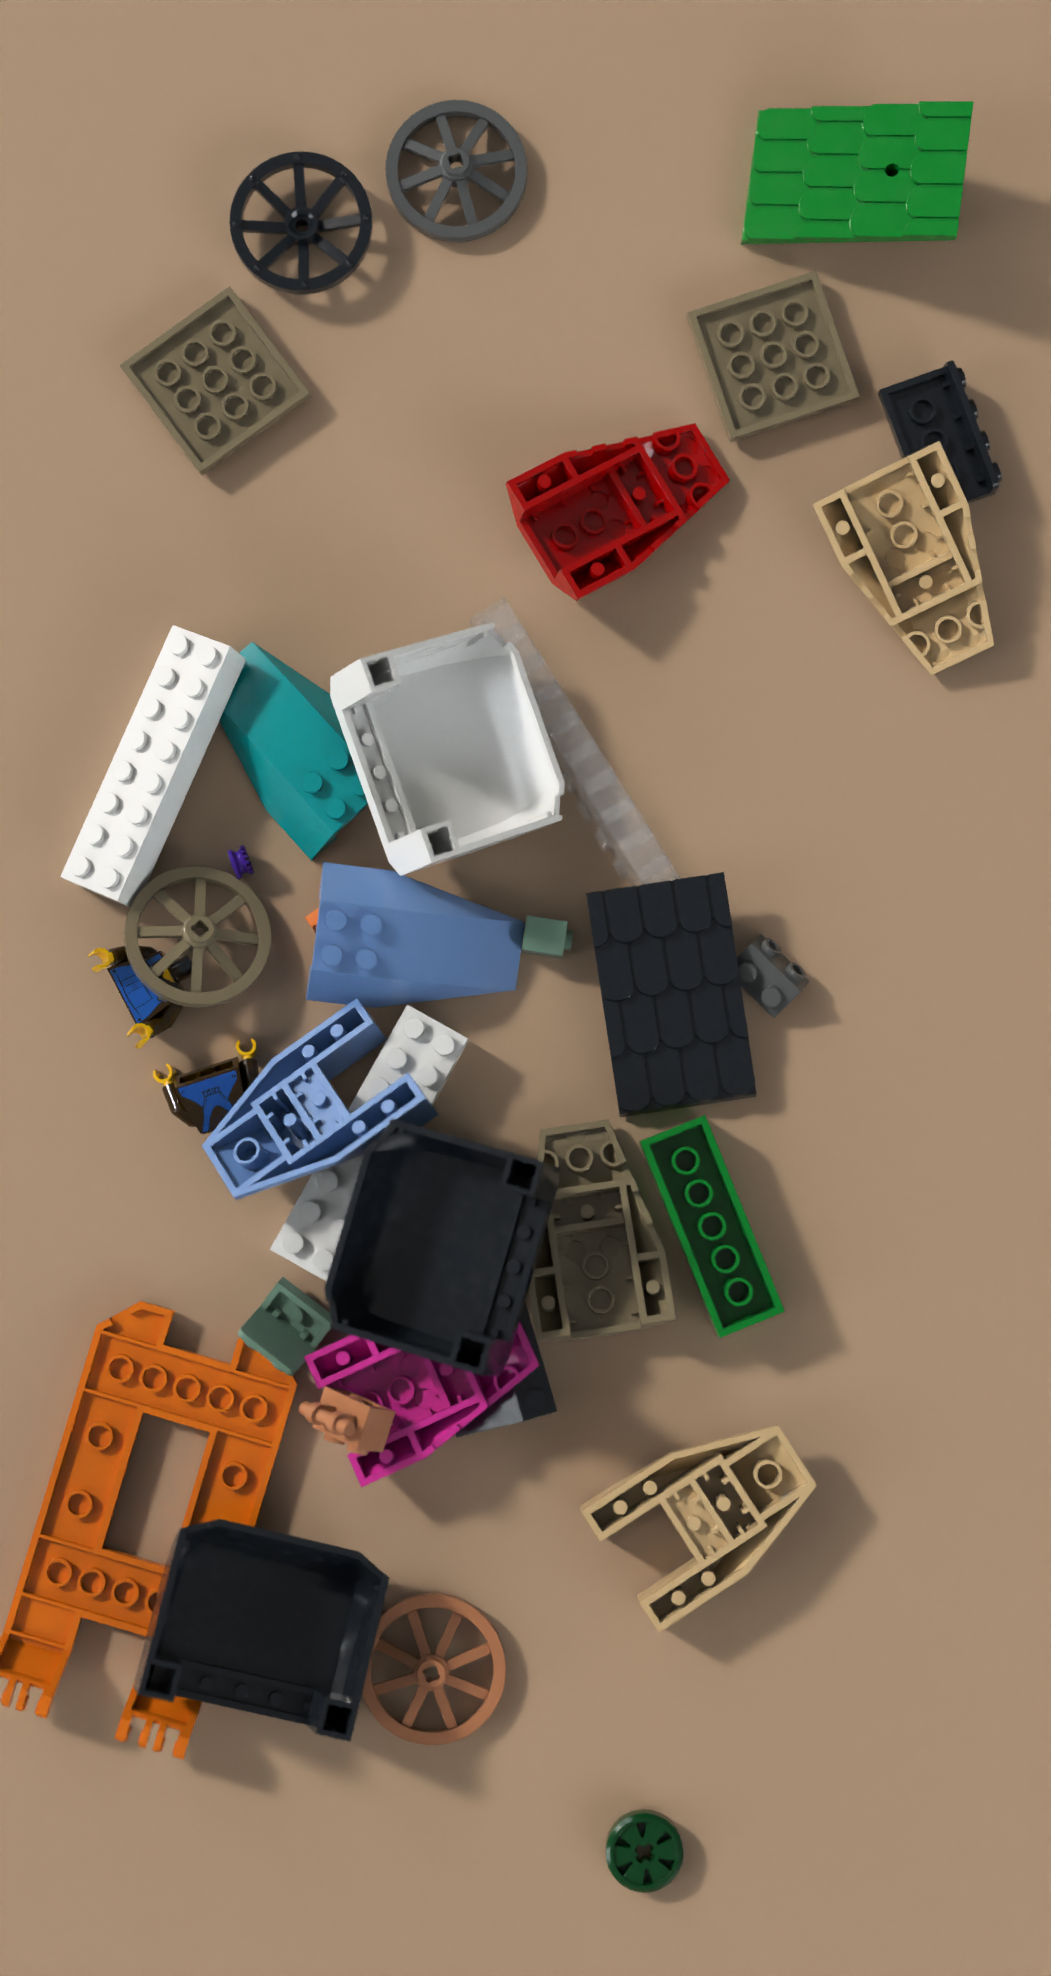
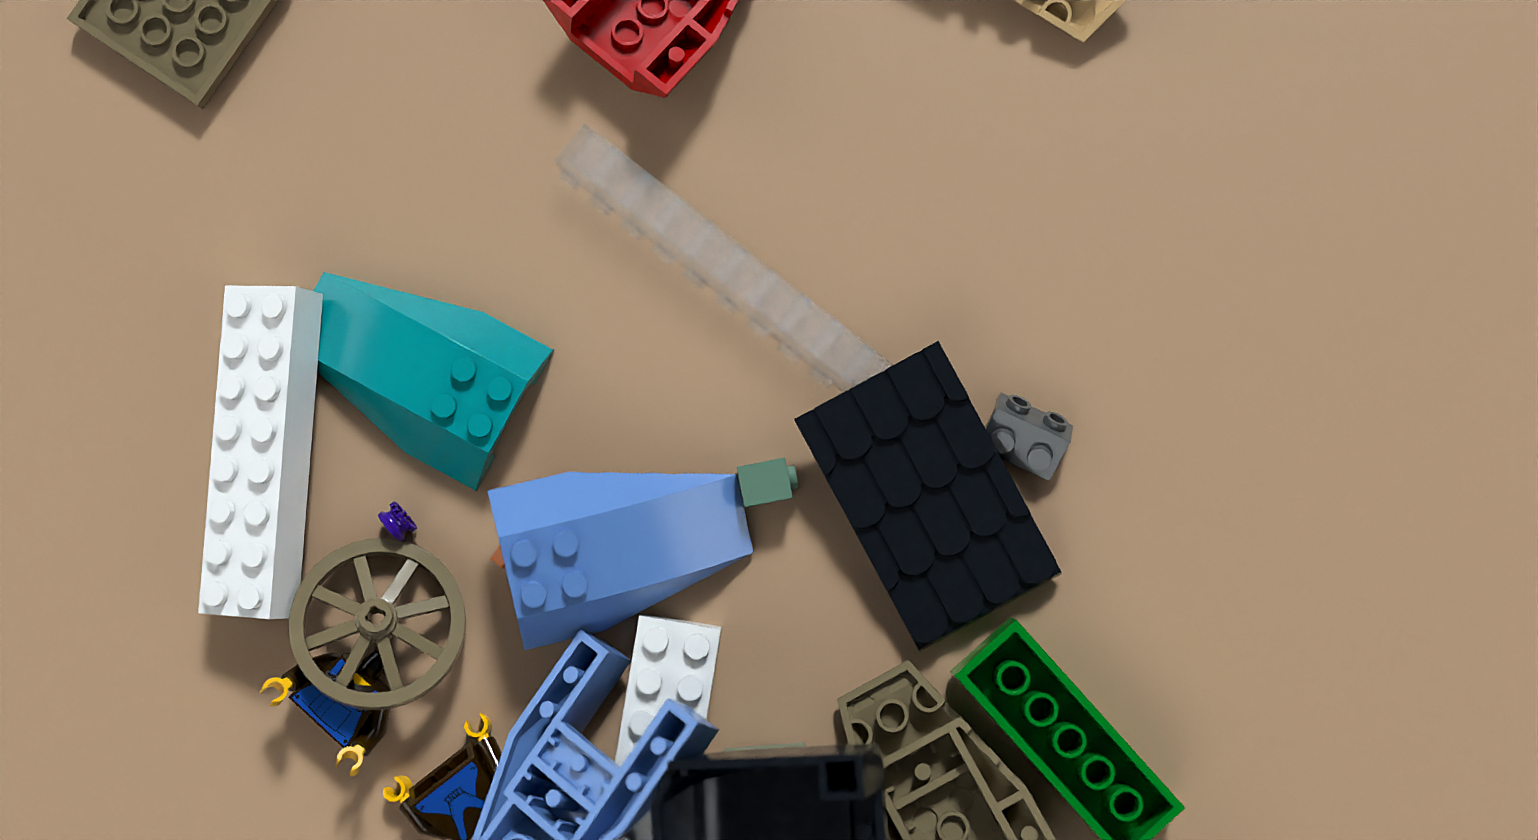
camera: 20 degrees left, 0 degrees up
(448, 746) = (579, 310): white slope -> none

